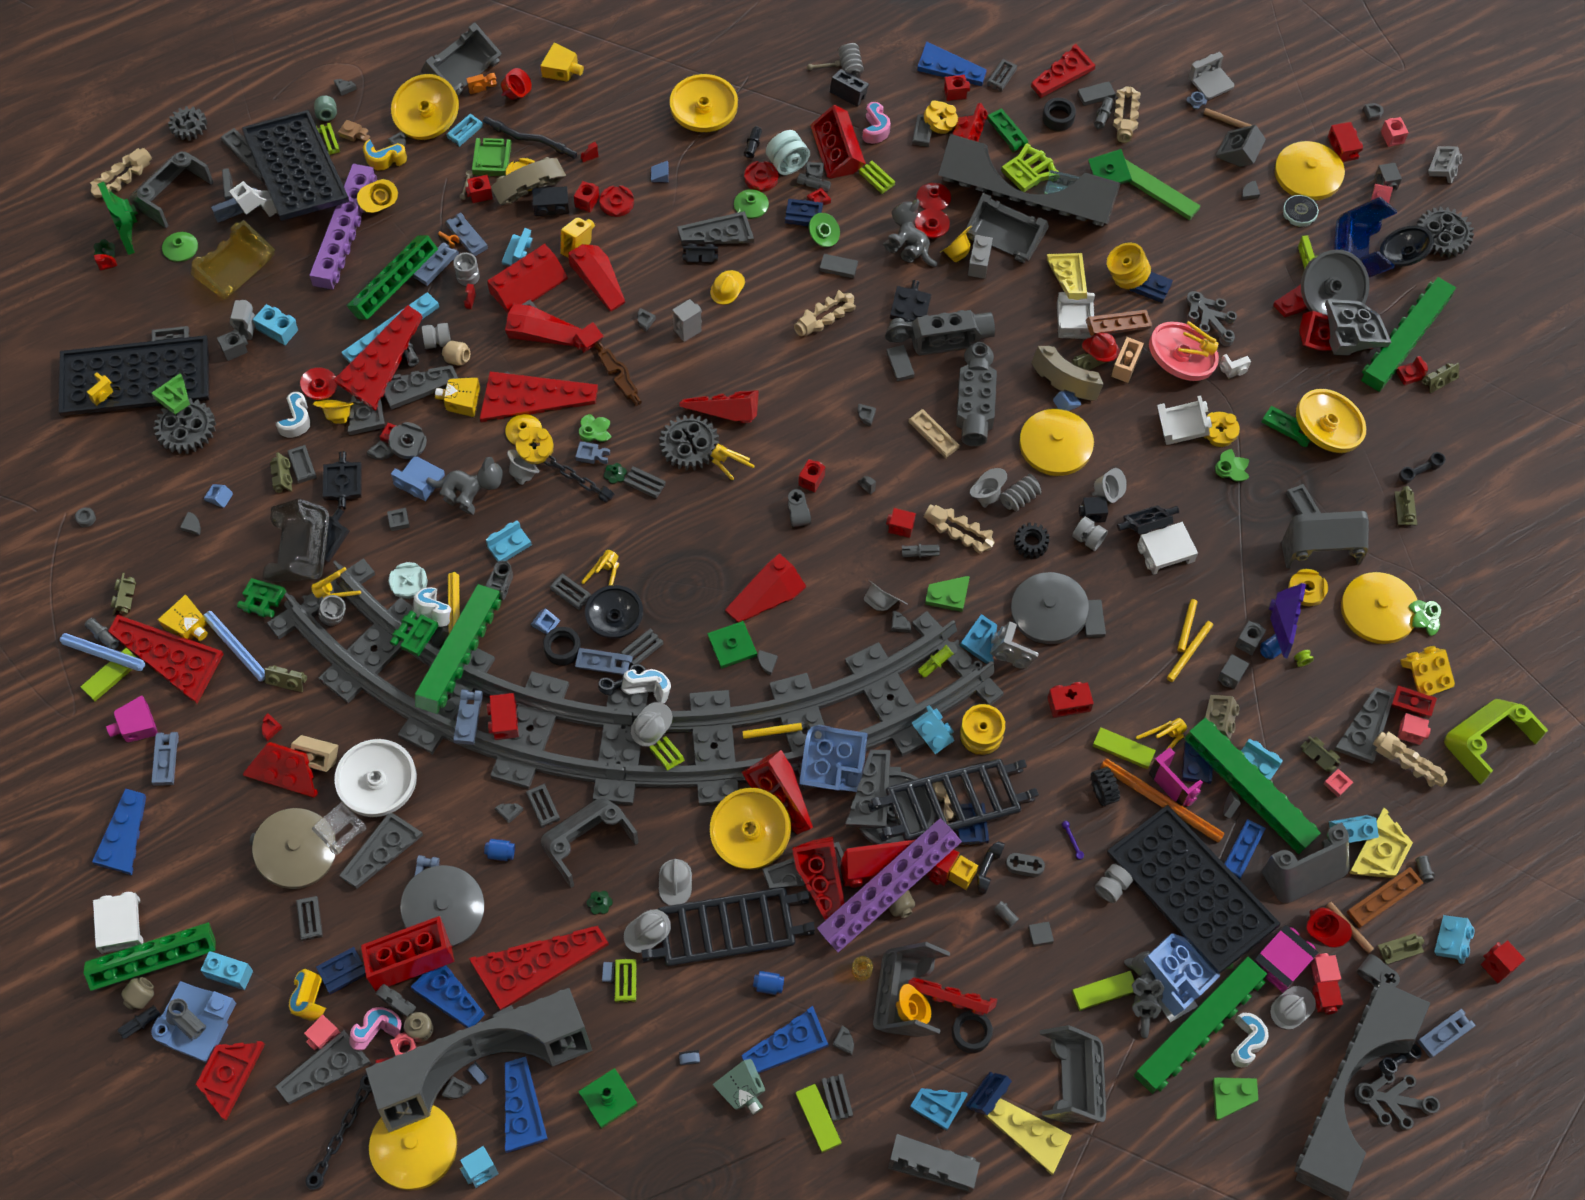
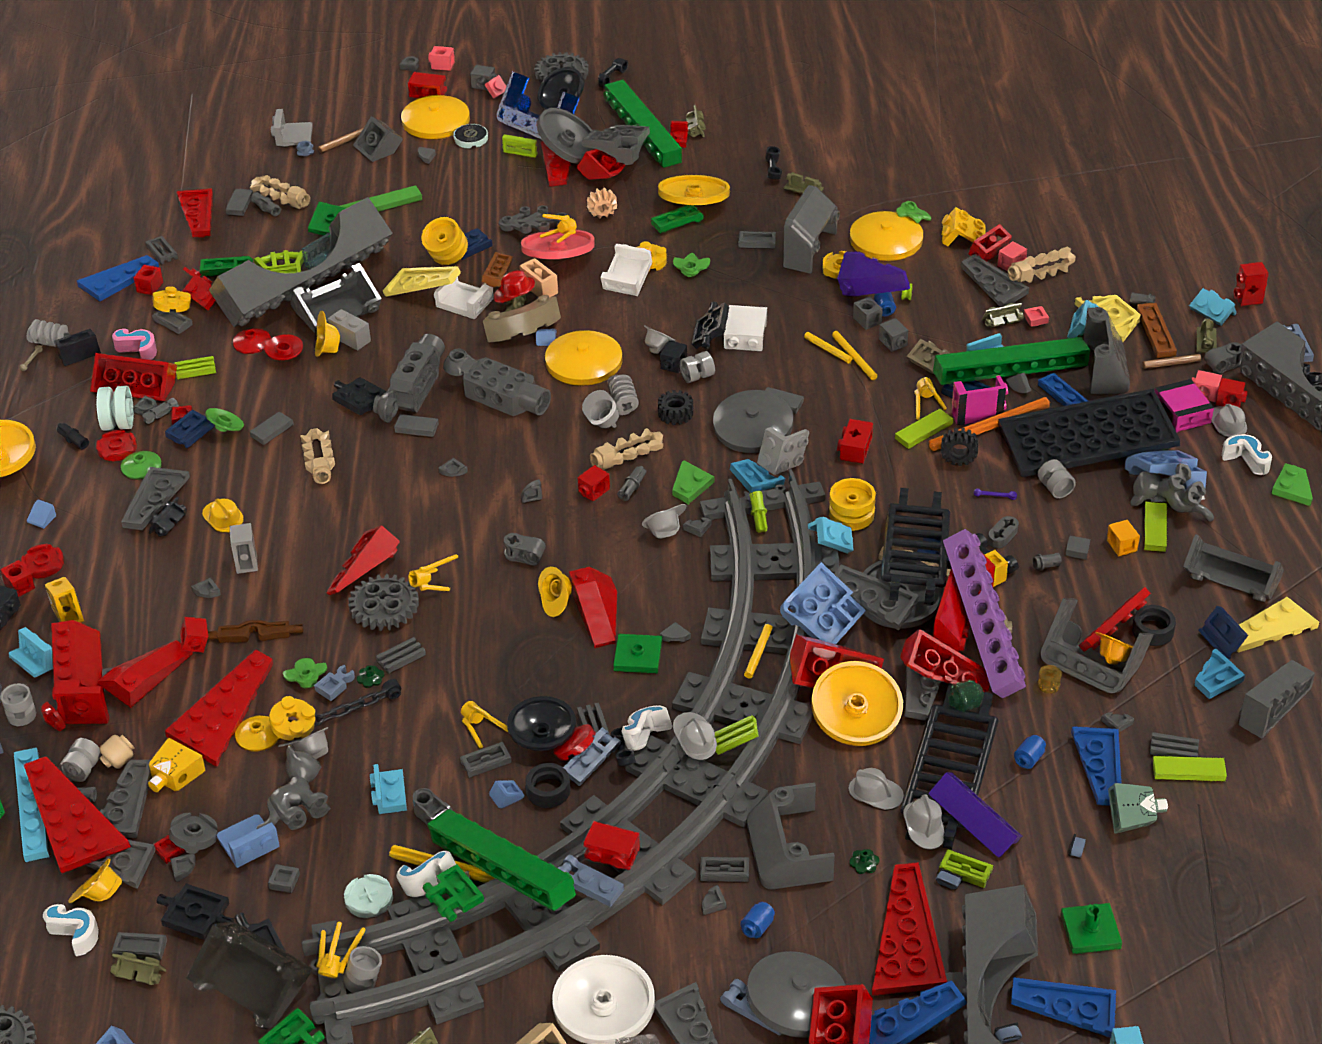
camera: 60 degrees left, 20 degrees down
(318, 377) = (49, 888): red dish -> none
(482, 303) = (80, 703): none -> red plate
(597, 272) = (115, 607): red wedge -> none
(606, 646) = (579, 741): none -> red tile
(675, 965) = (974, 814): none -> dark purple panel
(762, 553) = (554, 590): none -> yellow piece
(799, 908) = (966, 695): none -> clear green head
(809, 481) = (493, 526): red brick -> none
(918, 242) = (263, 356): dark grey animal -> none
(934, 433) = (511, 431): tan tile -> none
(1060, 104) = (241, 237): black tyre -> none
(1069, 967) = (1123, 537): none -> light orange brick
(1200, 1025) = (1223, 479): green brick -> none
(1236, 367) = (594, 226): white bracket -> none
(1263, 357) = (602, 203): none -> light nougat gear
(1328, 927) = (1166, 368): red piece -> none
(1446, 162) = (496, 44): light grey bracket -> none
(1466, 738) = (1043, 230): lime windscreen -> none
(1487, 273) = (618, 64): none -> black bar

